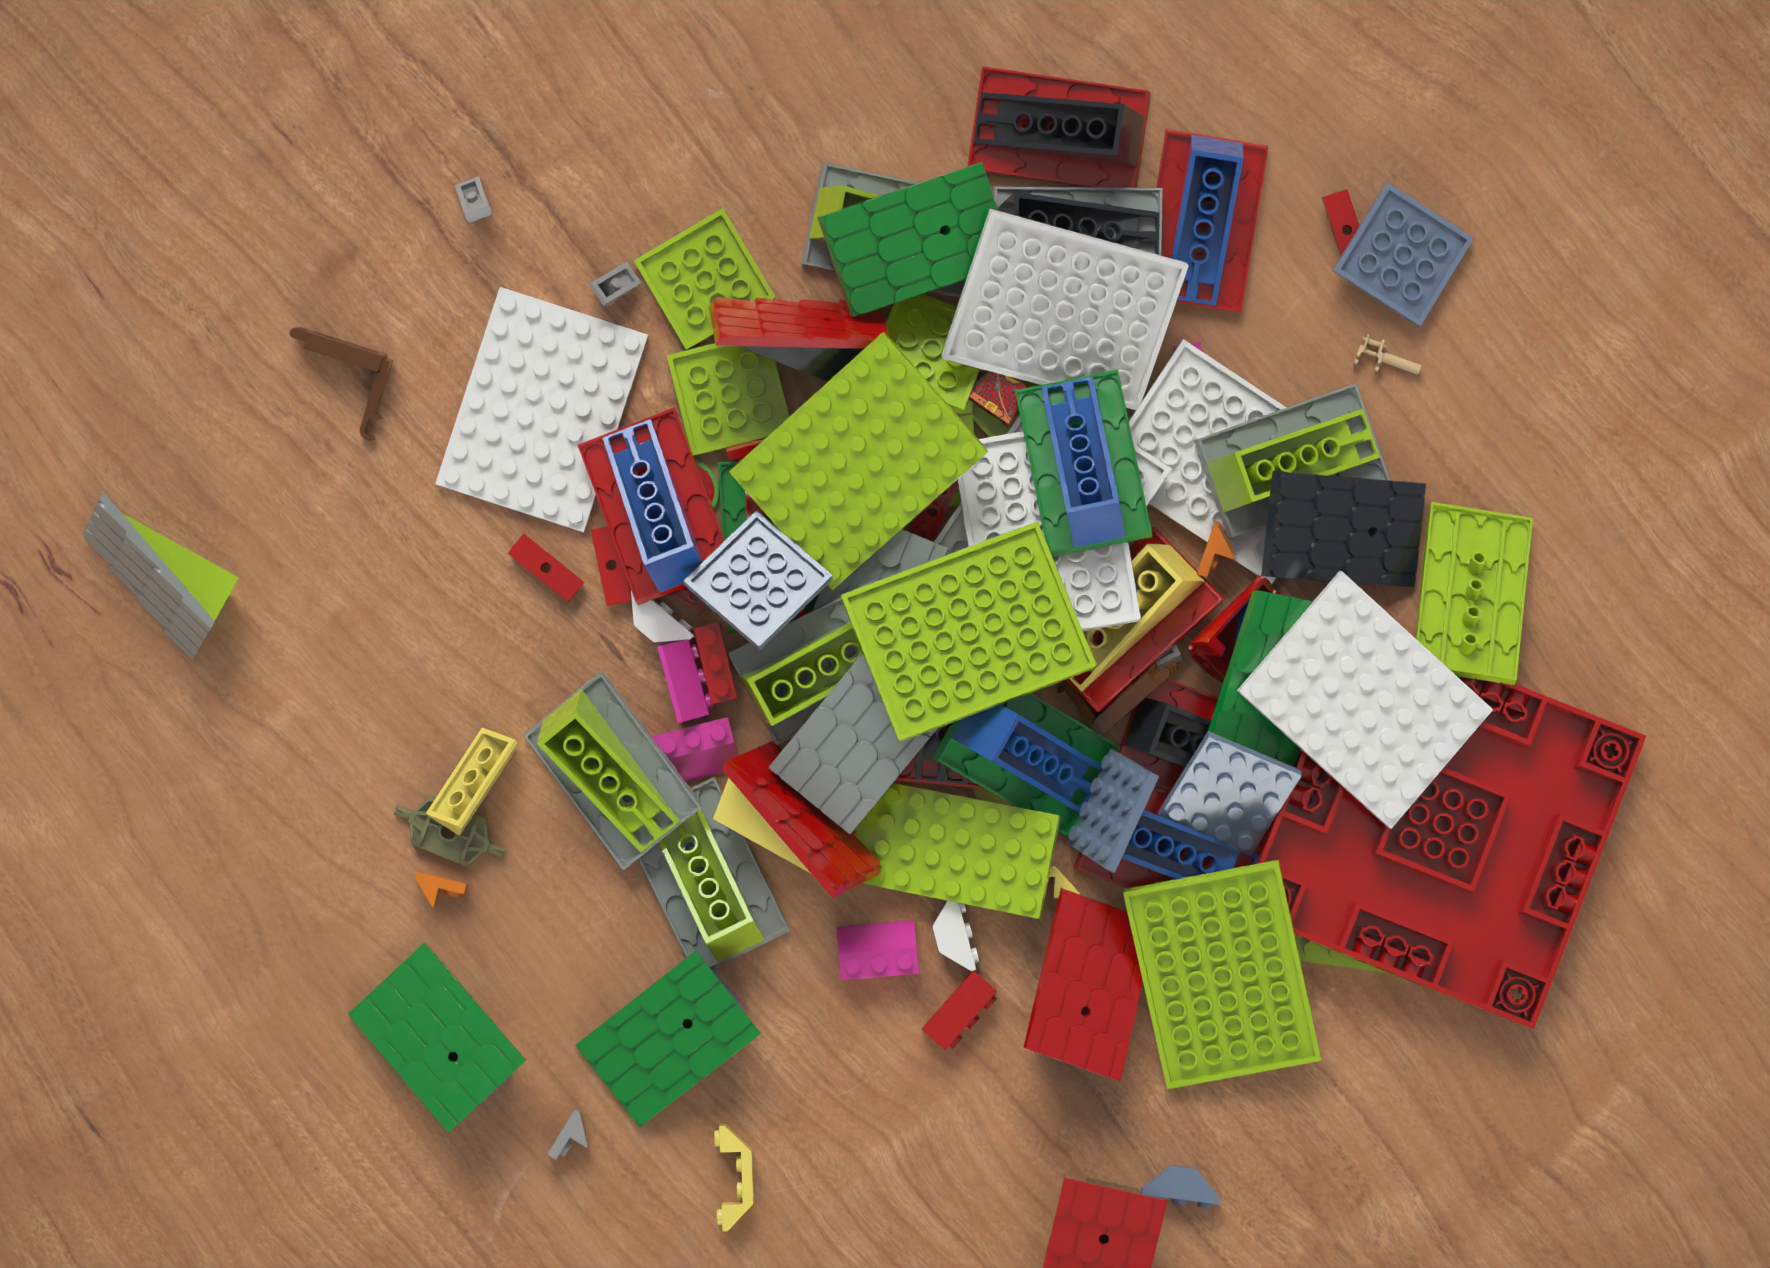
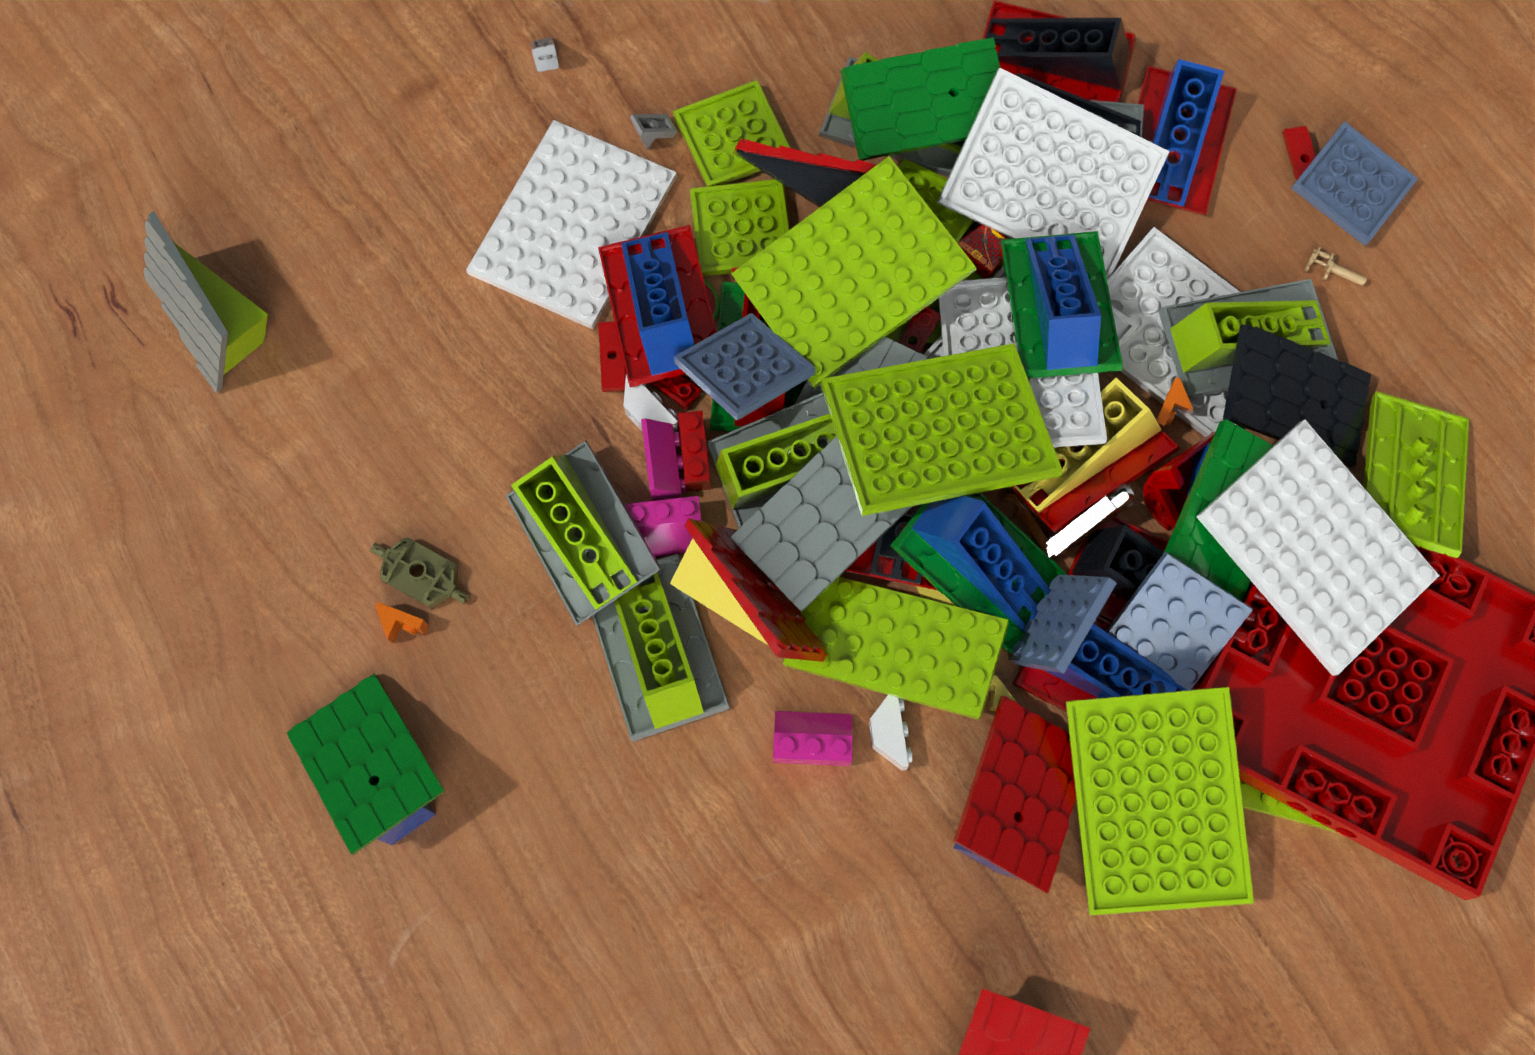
camera: 10 degrees right, 15 degrees down
(354, 355) = (414, 155): reddish brown hinge -> none
(472, 780) = (449, 527): light yellow slope -> none
(534, 557) = (543, 343): red tile -> none
(573, 1129) = (486, 876): light grey slope -> none
(649, 1052) = (573, 806): green piece -> none
(733, 1211) = (628, 984): light yellow slope -> none
(960, 1010) = (887, 807): red brick -> none
(1181, 1185) = (1103, 1018): sand blue slope -> none

